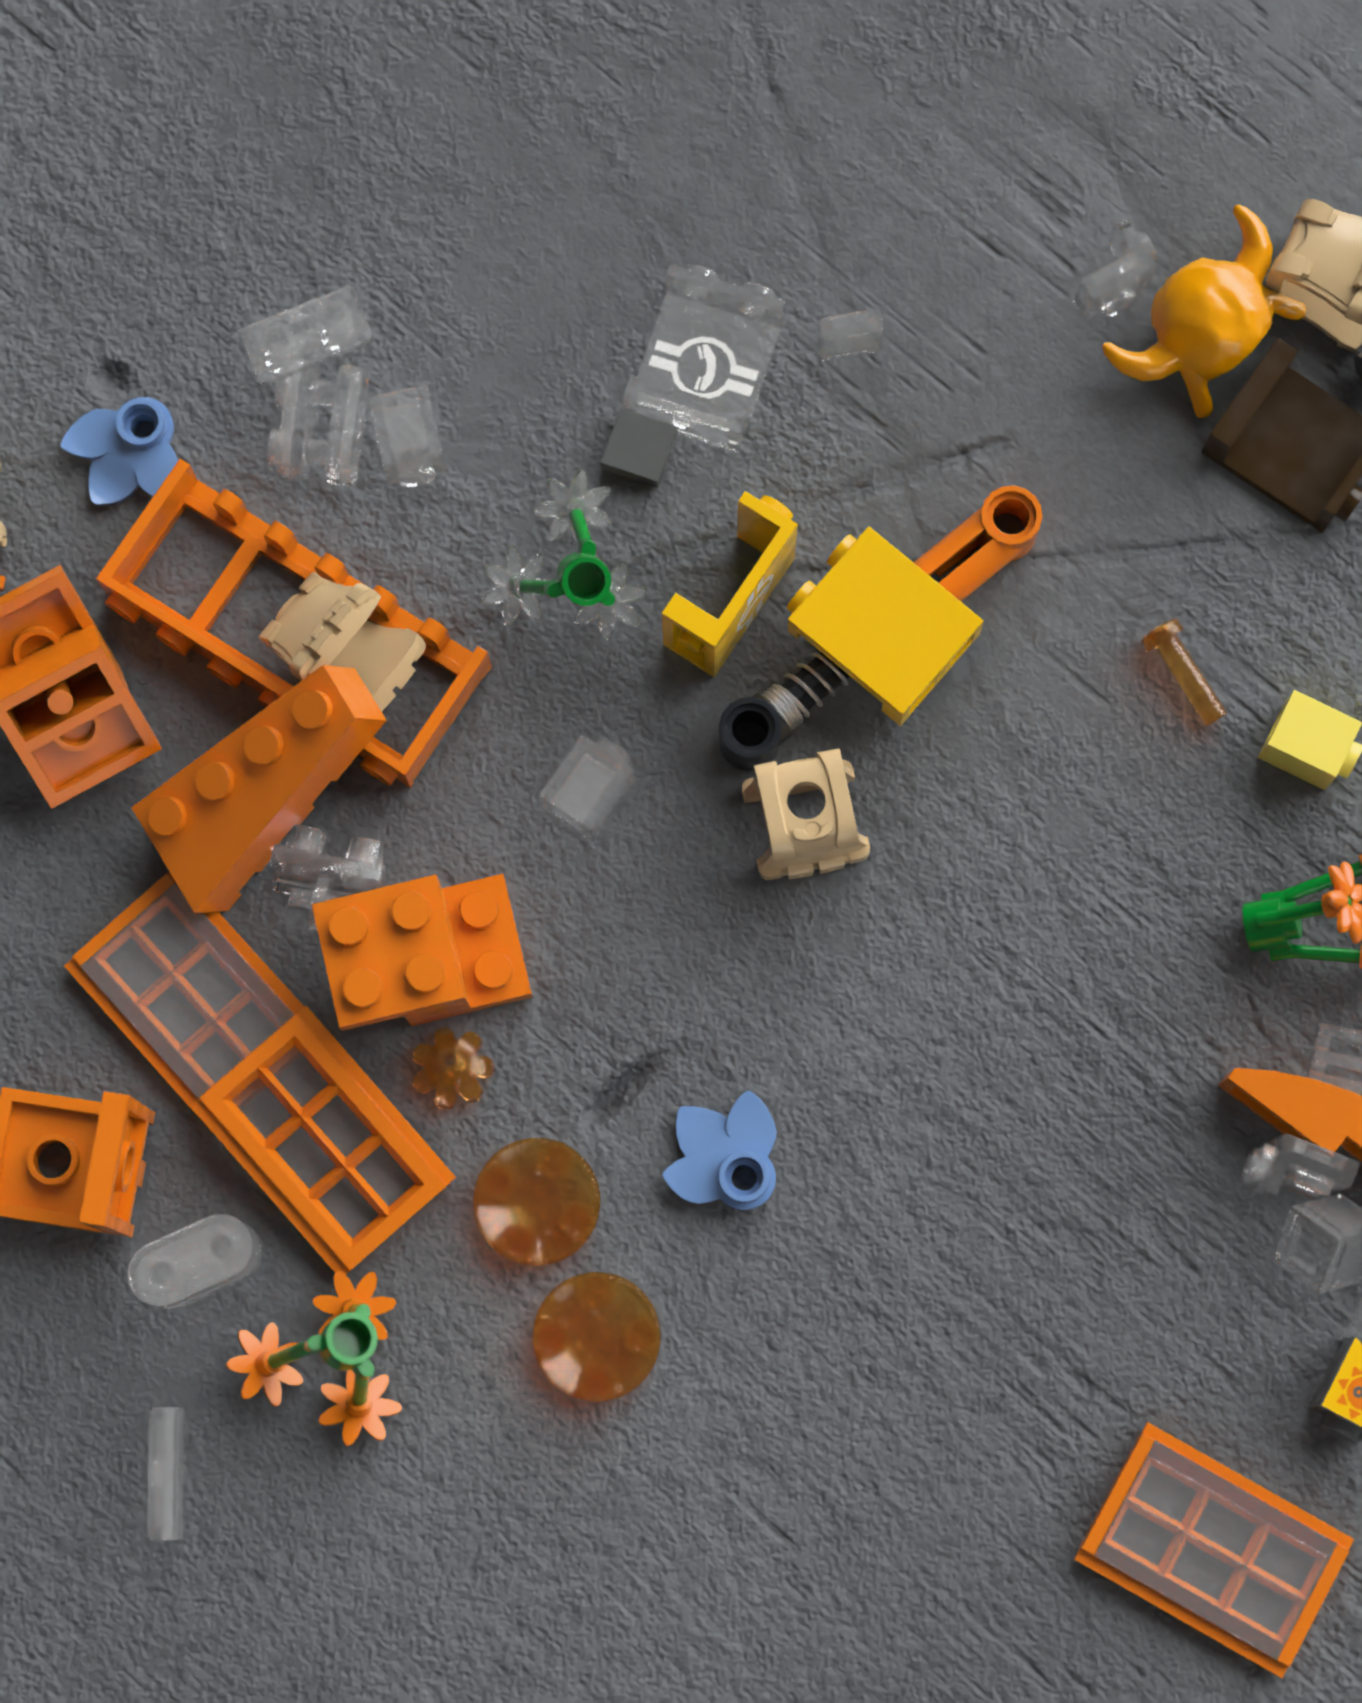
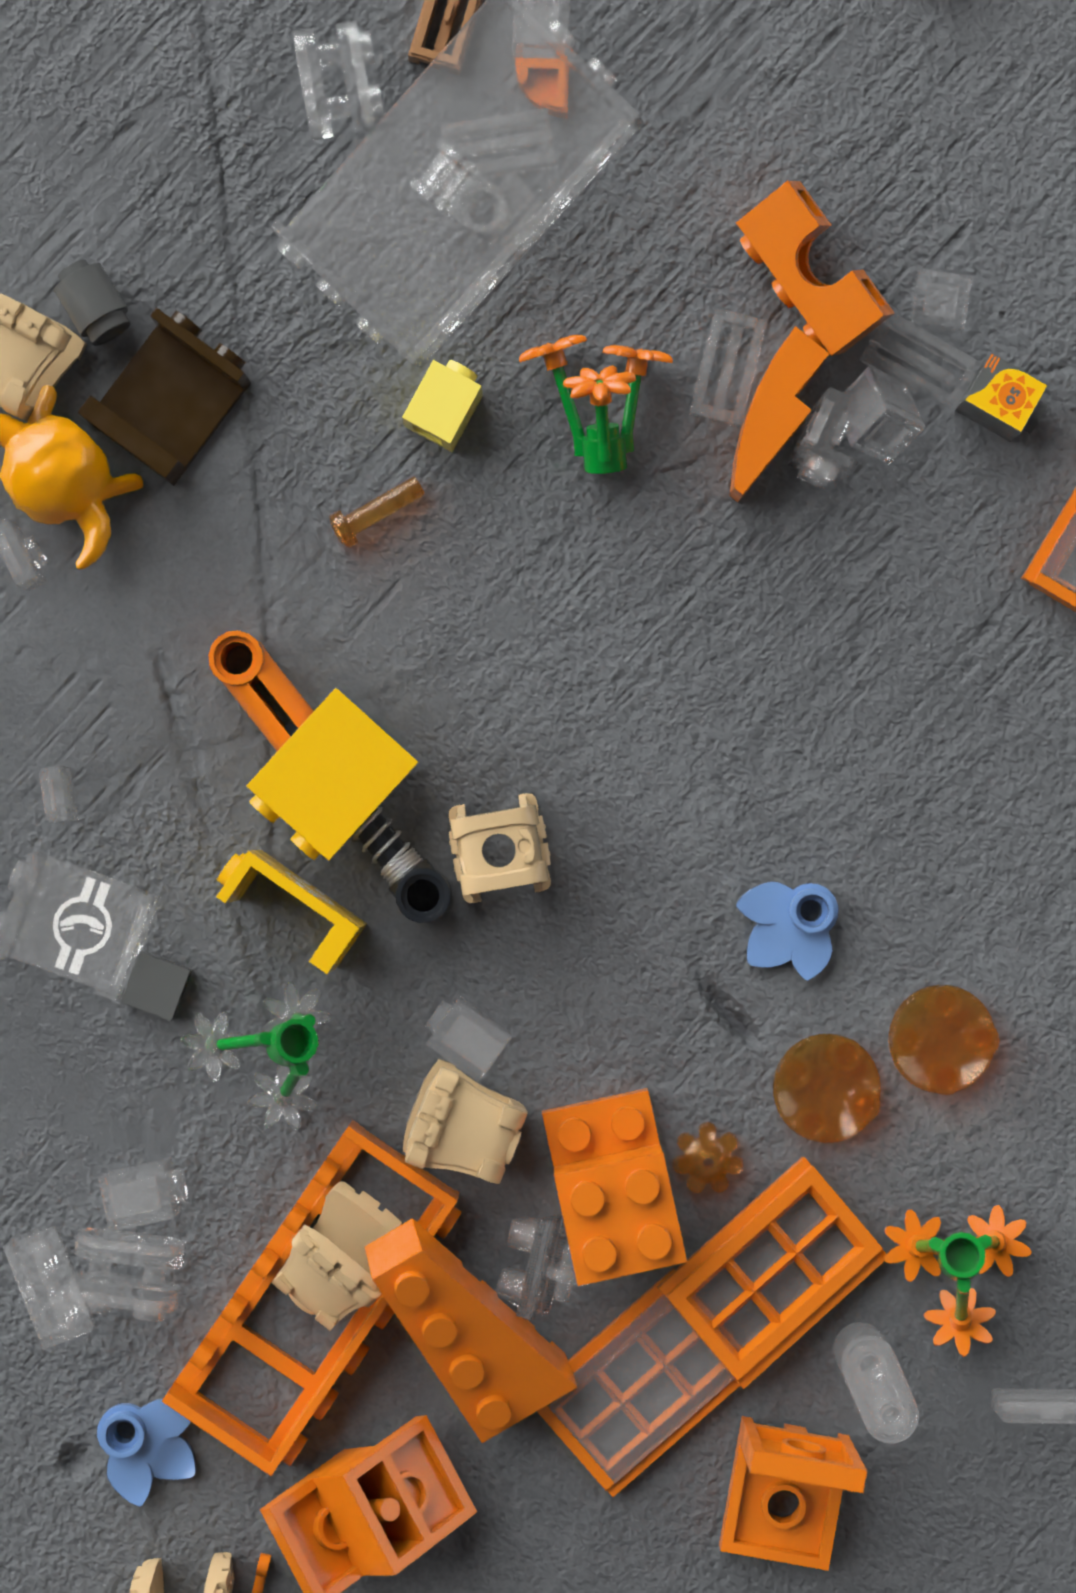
camera: 95 degrees left, 10 degrees up
(490, 778) = (462, 1125): none -> tan piece

